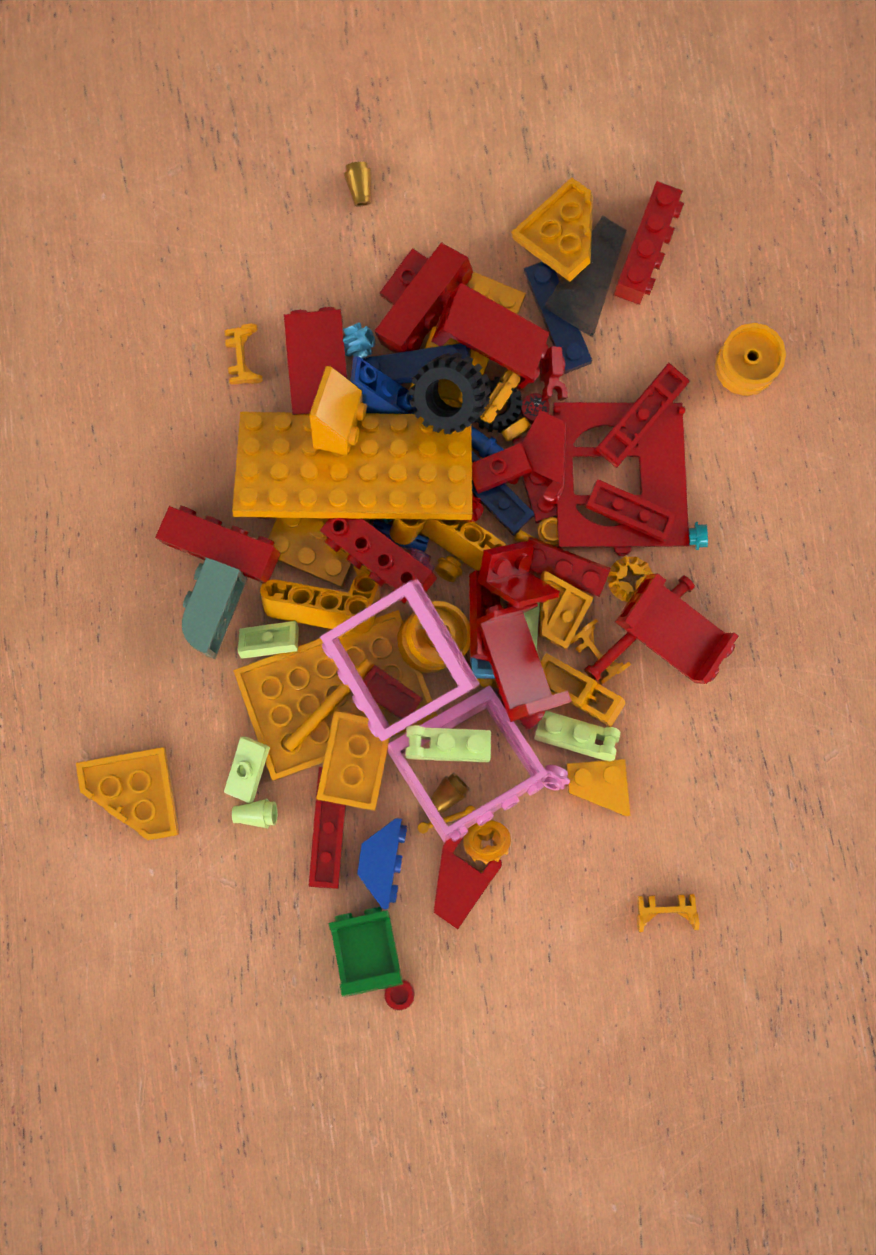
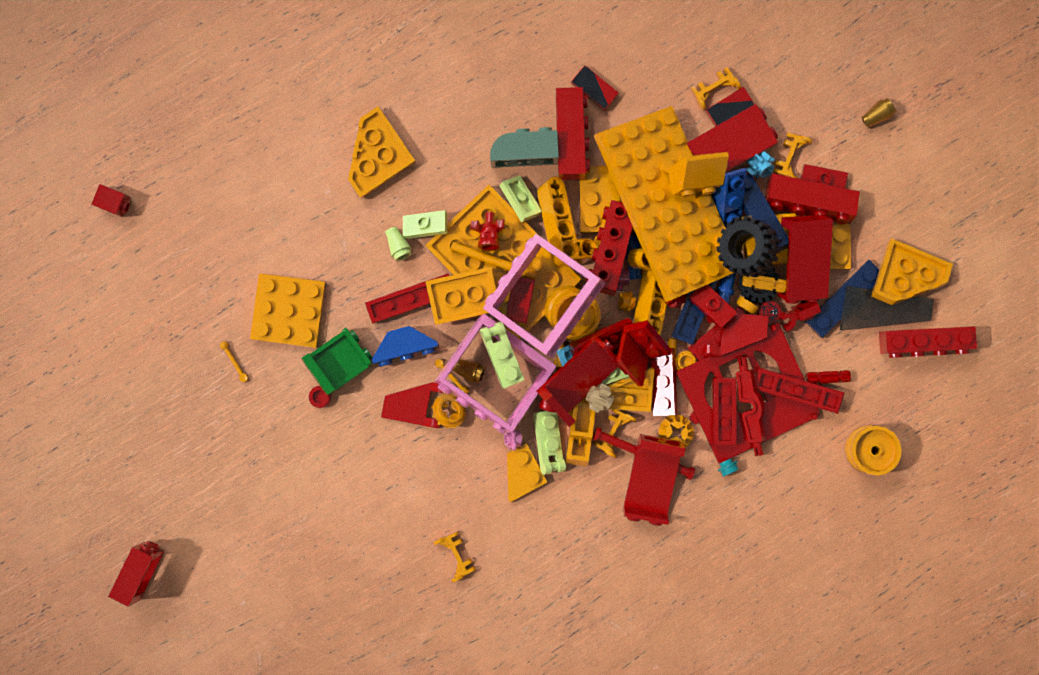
camera: 70 degrees right, 5 degrees up
(35, 1153) = (111, 200): none -> red brick
(175, 493) = (595, 87): none -> black tile
(273, 348) = (729, 106): none -> black tile
(275, 987) = (287, 310): none -> light orange plate
(291, 695) = (488, 232): none -> red piece
(332, 1081) = (243, 377): none -> light orange hinge
(351, 290) = (797, 143): none -> light orange piece
(551, 650) = (599, 398): none -> tan gear
(622, 473) = (752, 418): none -> red piece
(641, 373) = (829, 377): none -> red axle

